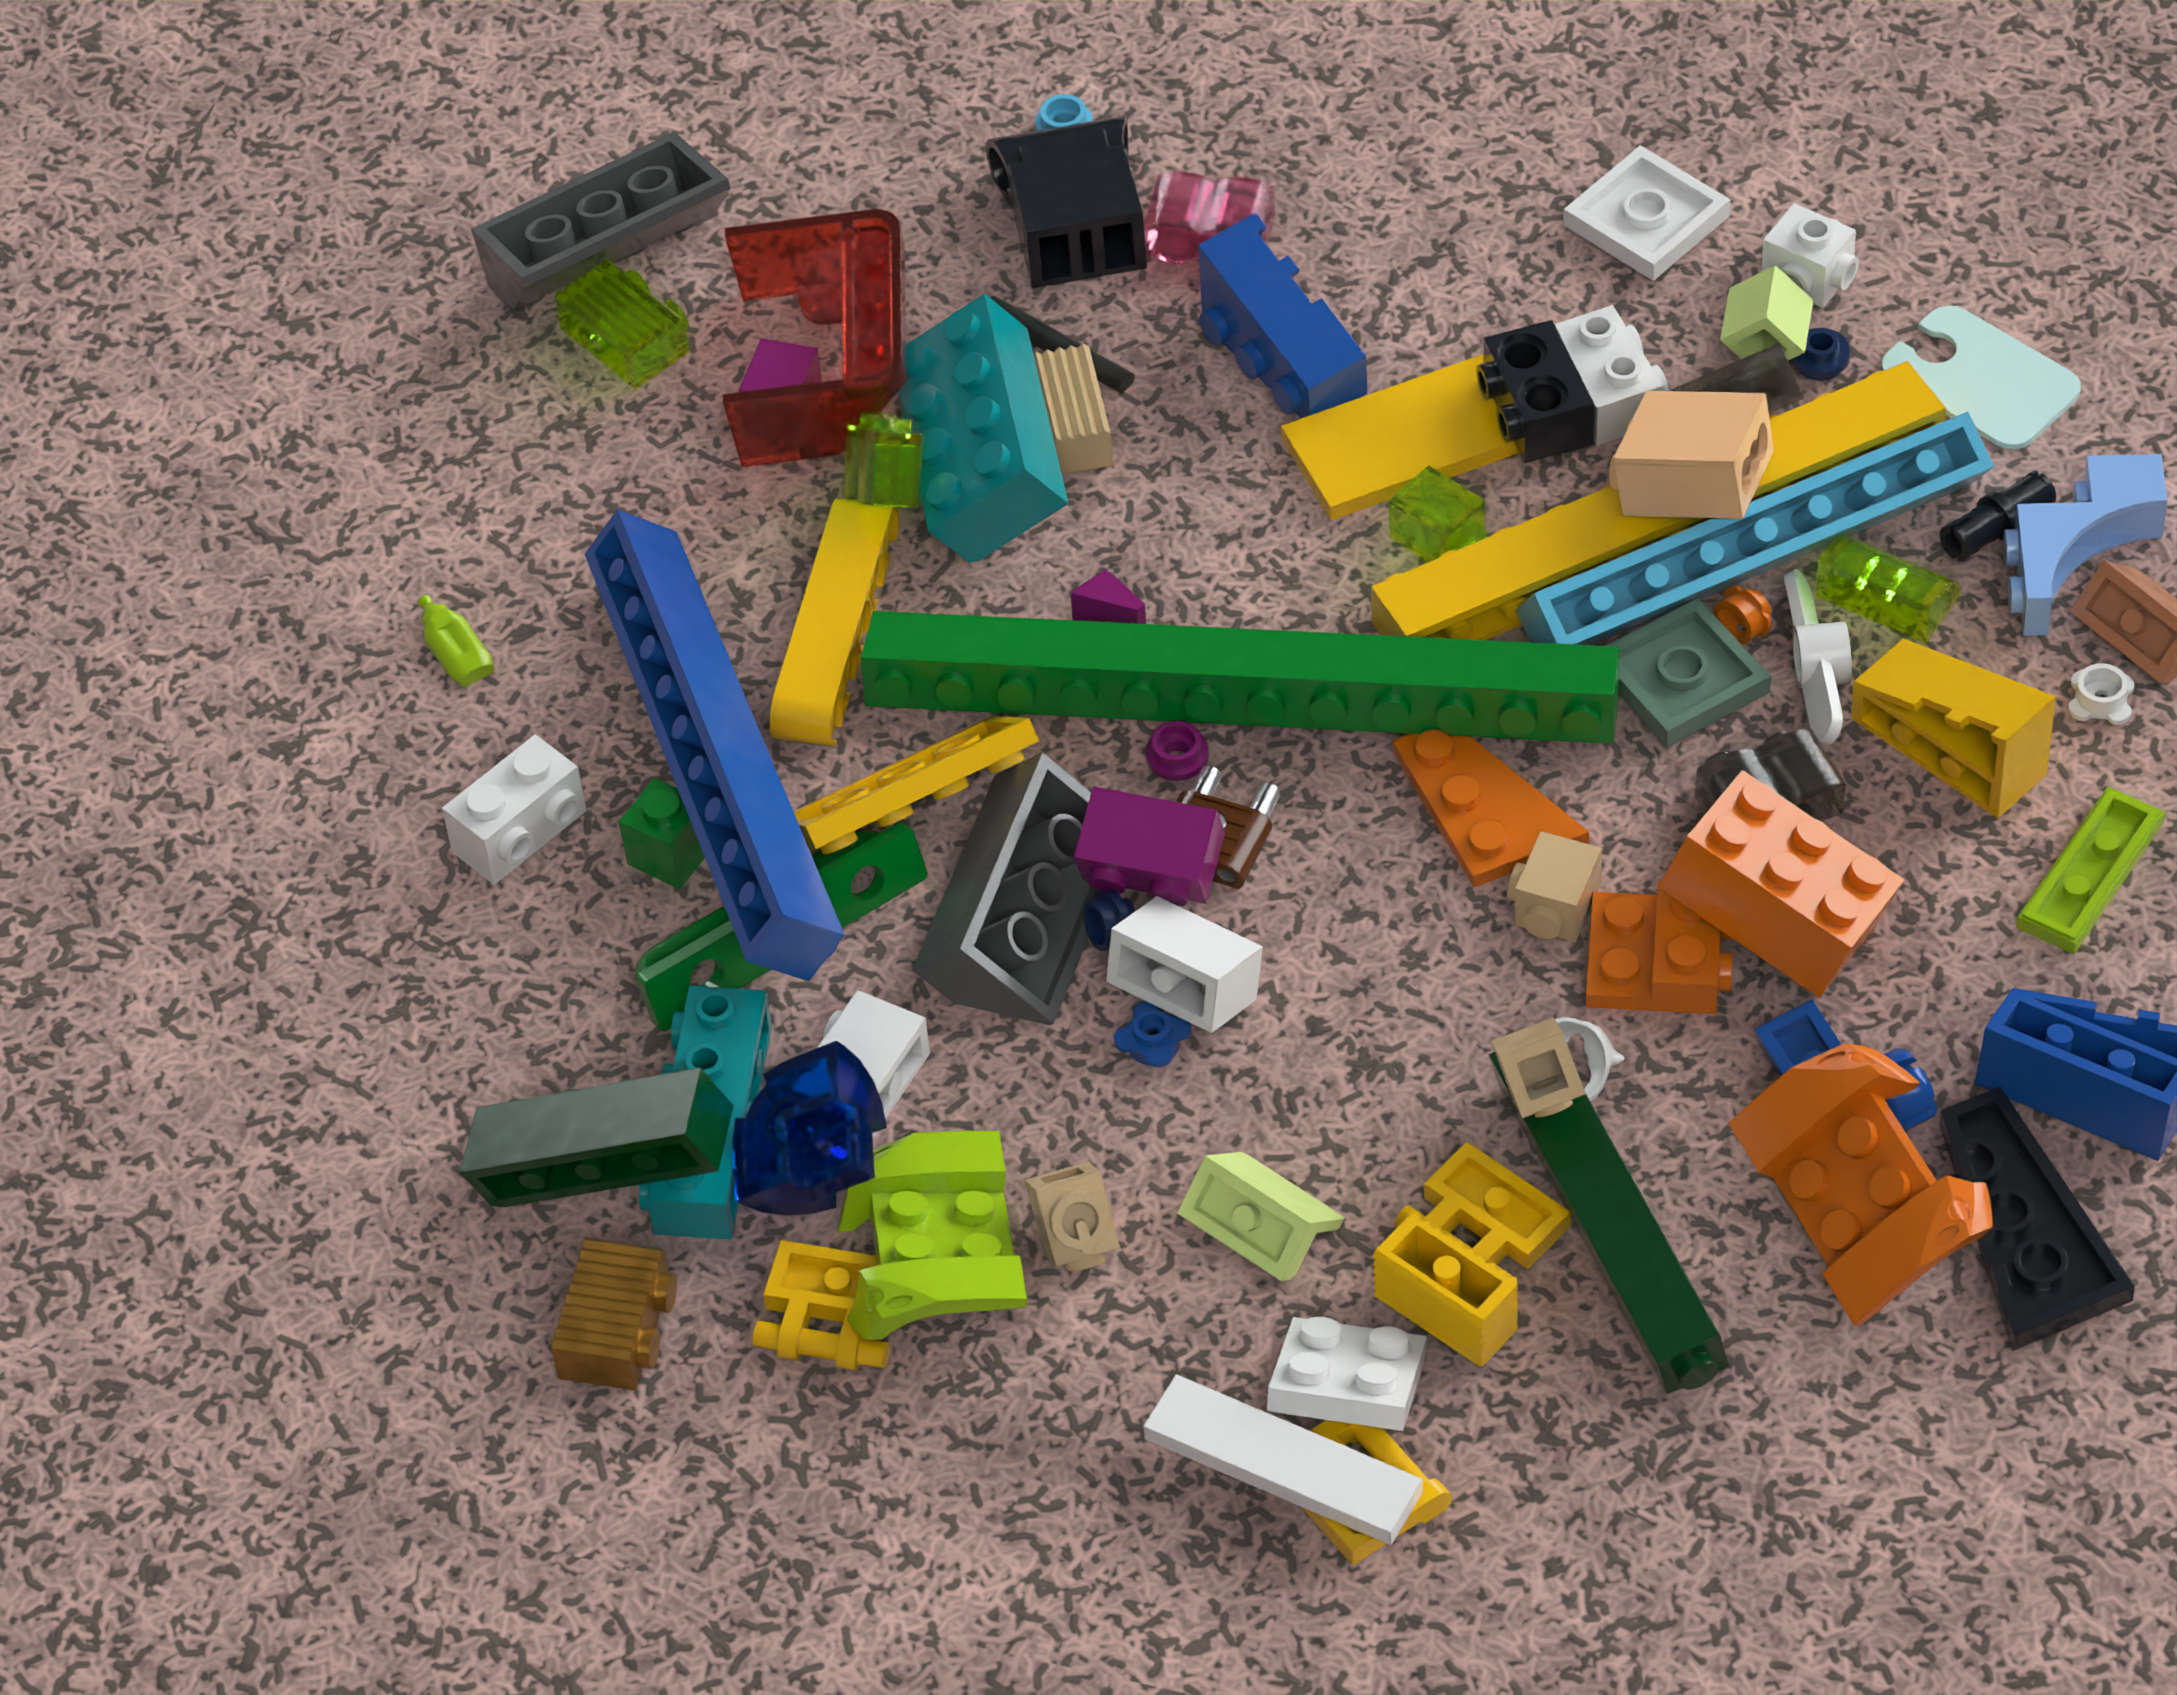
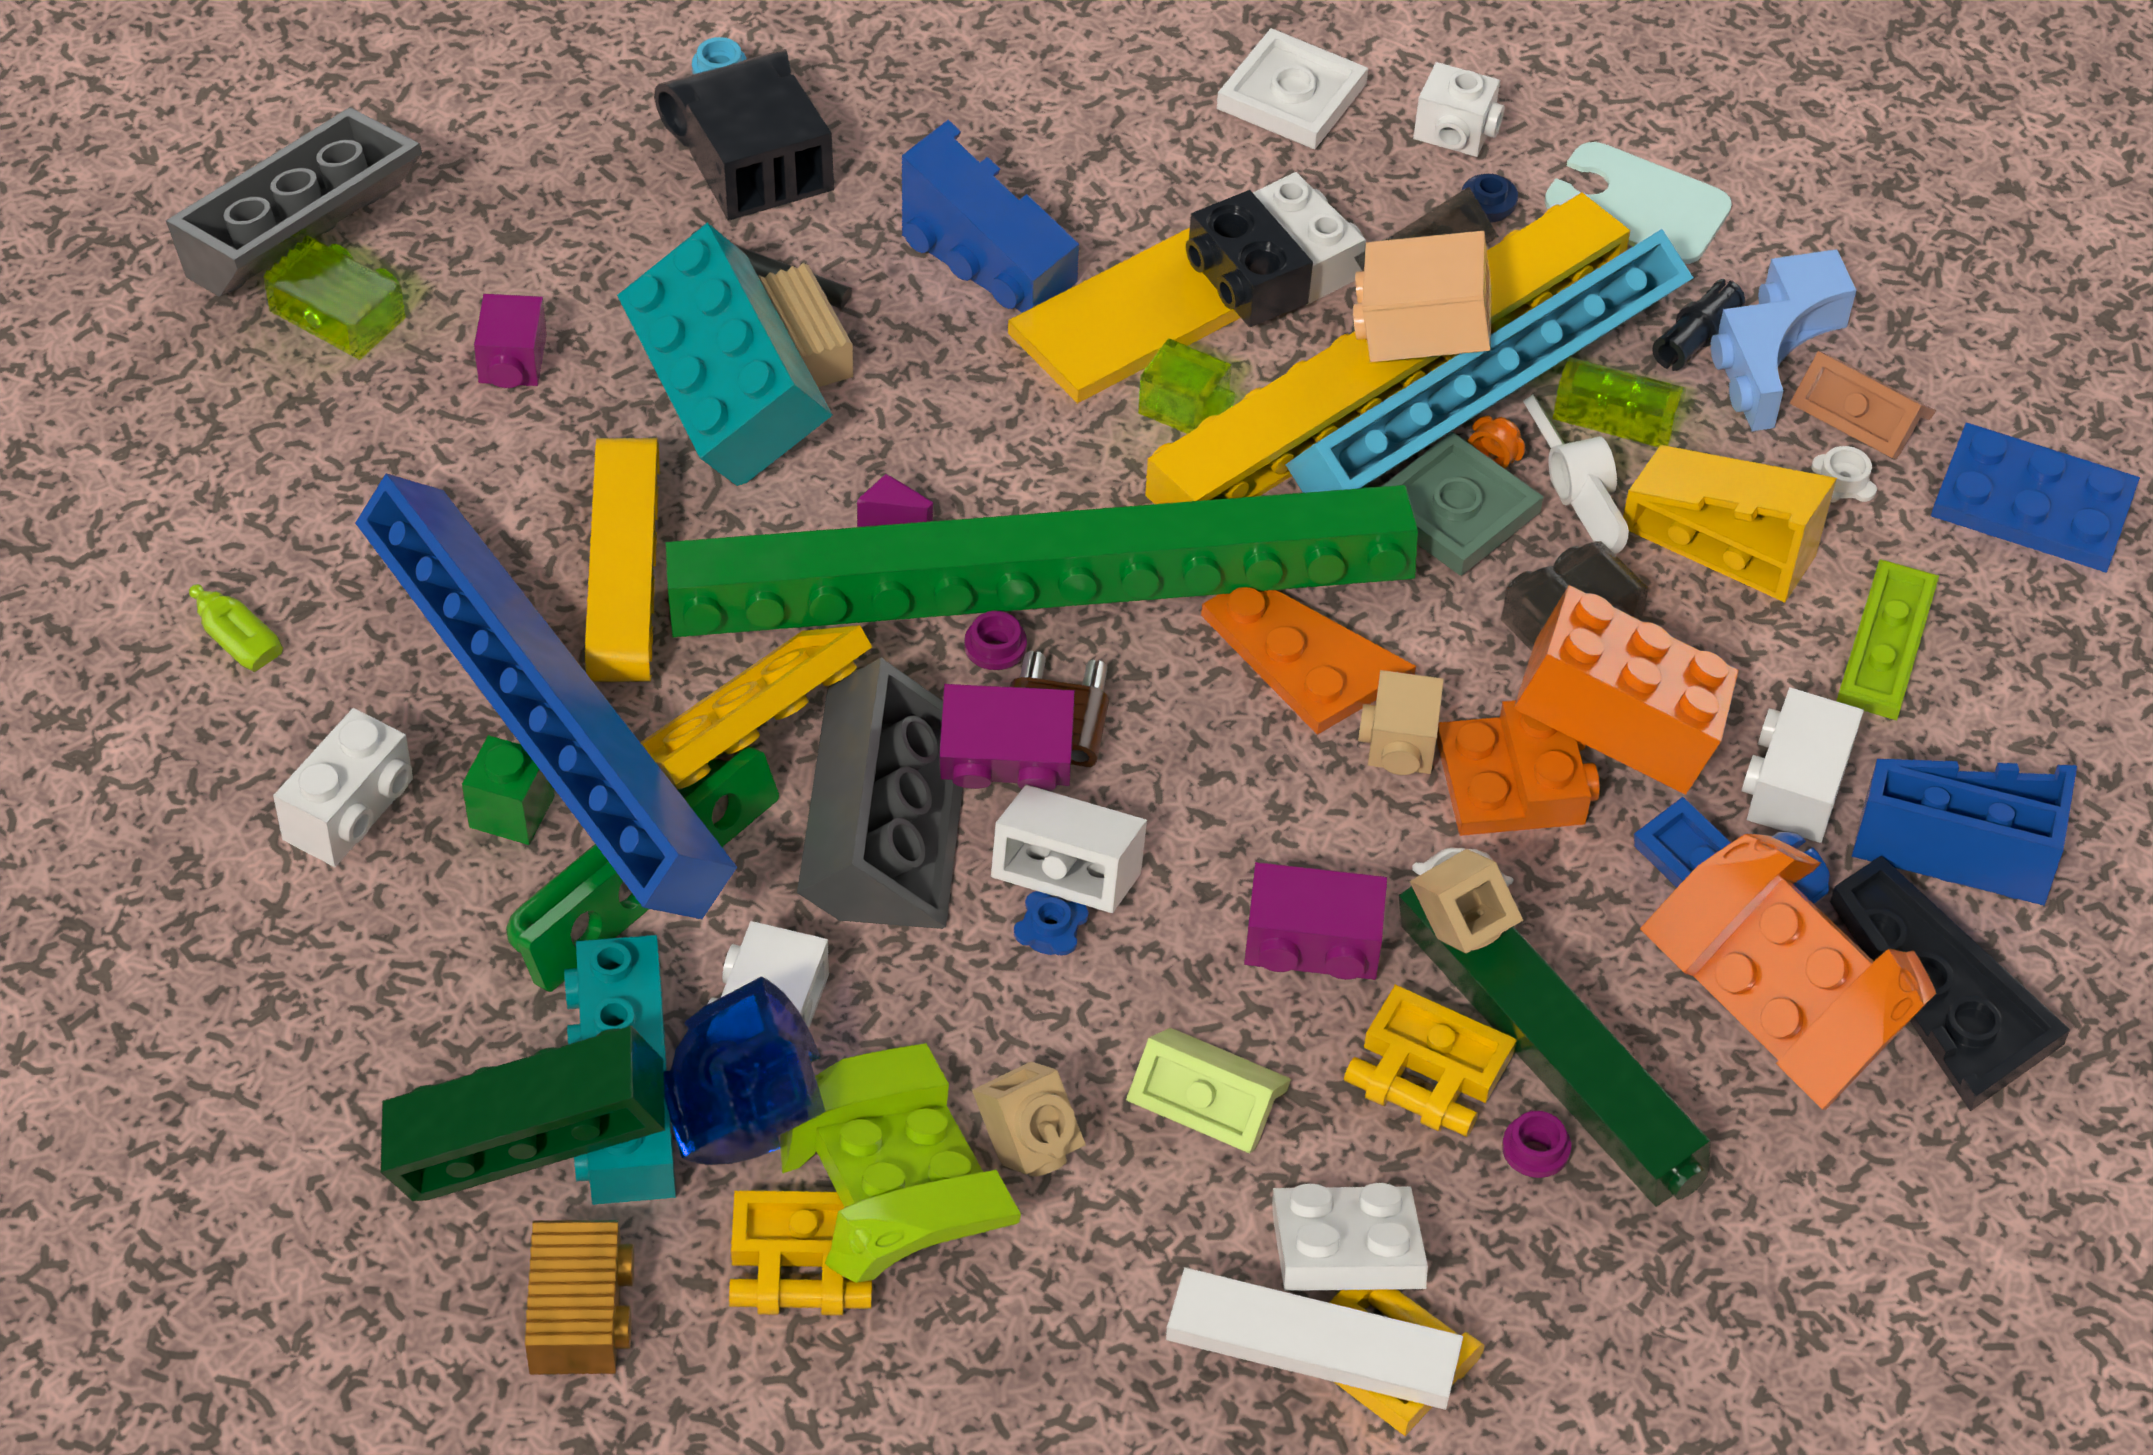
camera: 20 degrees left, 0 degrees up
(845, 273) = (547, 222): clear red windscreen -> none
(883, 461) = (639, 395): clear neon green brick -> none
(1103, 914) = (976, 815): dark blue plate -> none
(1194, 208) = (876, 132): clear pink brick -> none
(1405, 1069) = (1316, 921): none -> magenta brick
(1446, 1289) = (1424, 1136): yellow brick -> none
(1568, 1299) = (1541, 1128): none -> magenta plate
(1767, 312) = (1435, 166): yellowish green brick -> none
(1948, 984) = (1803, 763): none -> white brick

